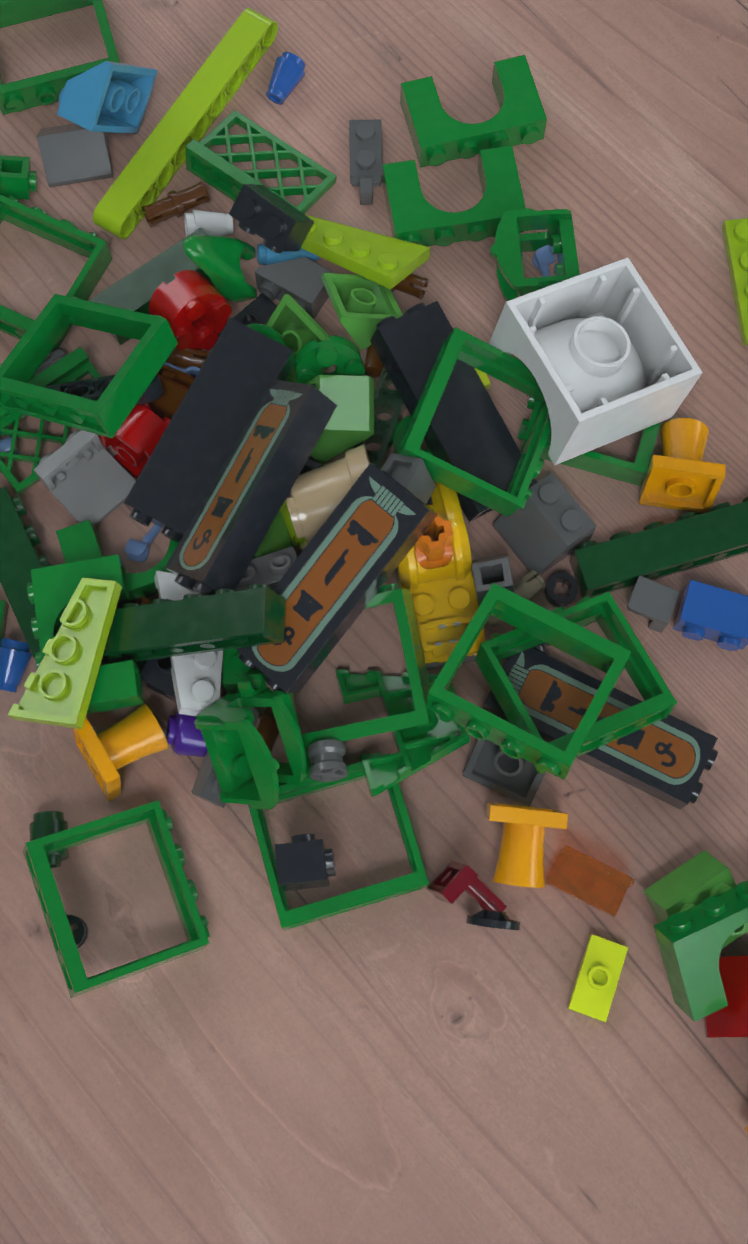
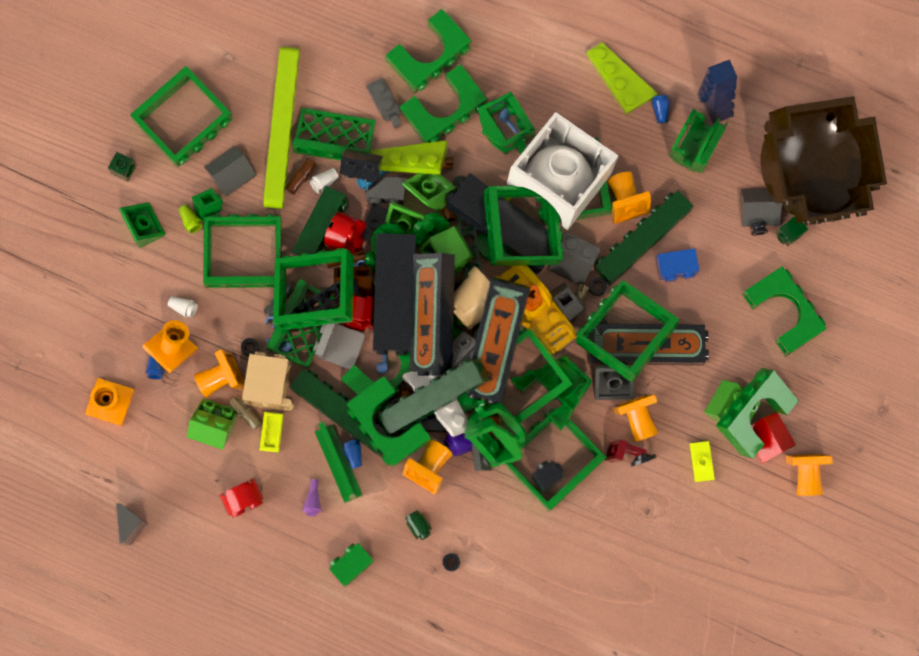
camera: 30 degrees left, 5 degrees up
(67, 674) = (393, 441): lime wing -> none
(108, 97) = (241, 141): dark azure slope -> none
(171, 860) = (450, 558): green window -> none
(221, 262) = (347, 200): green animal -> none
(285, 77) = (319, 77): blue cone -> none
(327, 760) = (532, 424): dark grey wheel -> none
(412, 474) = (503, 270): dark grey panel -> none
(552, 630) = (608, 313): green window -> none
(589, 880) = (677, 419): clear orange panel -> none
(653, 602) = (644, 272): dark grey panel -> none

